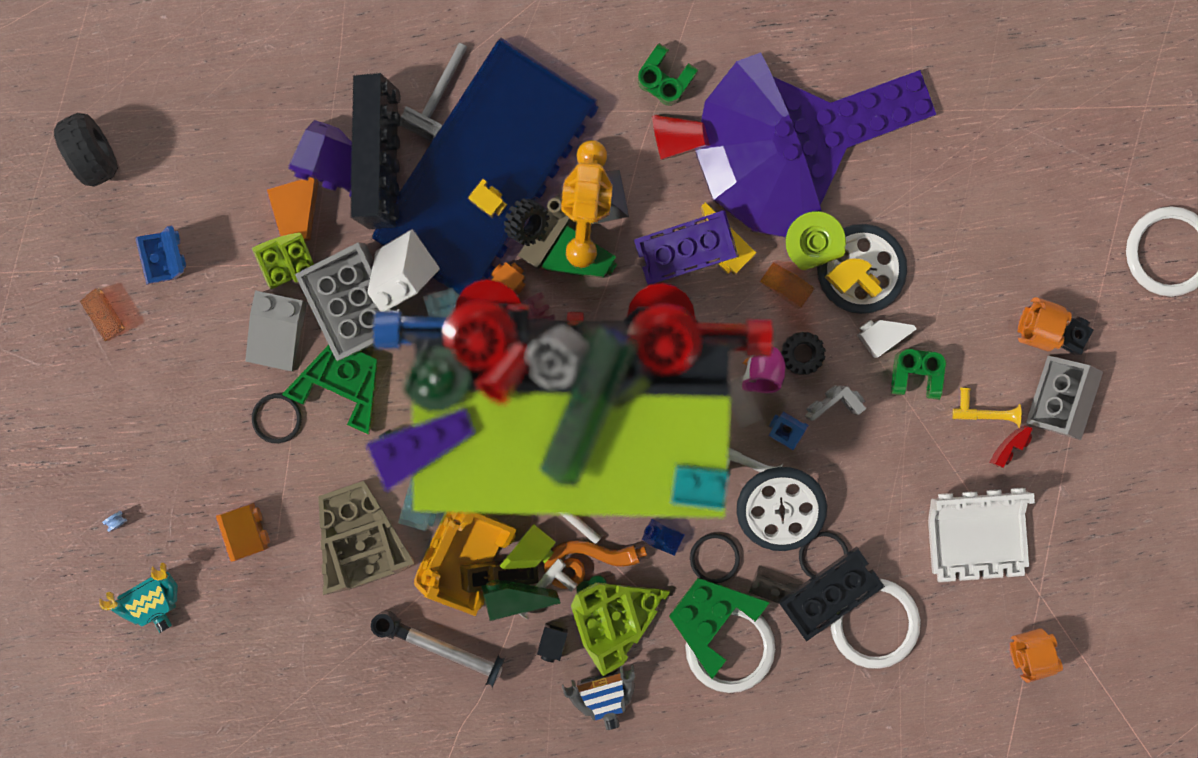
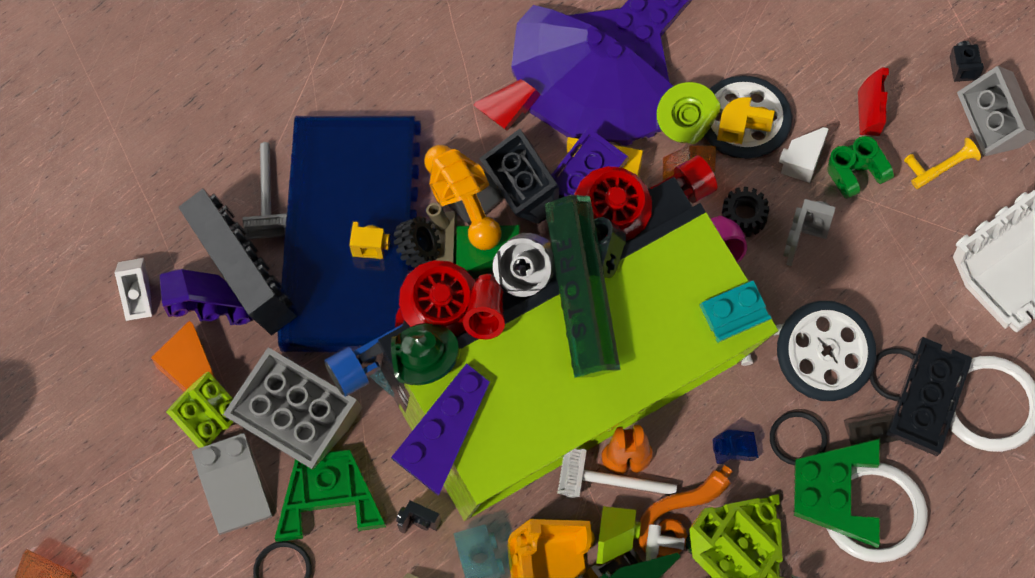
camera: 25 degrees left, 25 degrees down
(161, 256) = (80, 479): blue bracket -> none
(287, 114) = (134, 288): none -> white slope
(400, 270) = (320, 339): white slope -> none
(645, 215) = (521, 177): none -> black slope
(663, 80) = (463, 72): green piece -> none
(787, 438) = (787, 273): blue brick -> none
(969, 327) = (872, 103): none -> red slope
(1017, 439) = (986, 173): red slope -> none
(1043, 324) = (933, 64): orange brick -> none

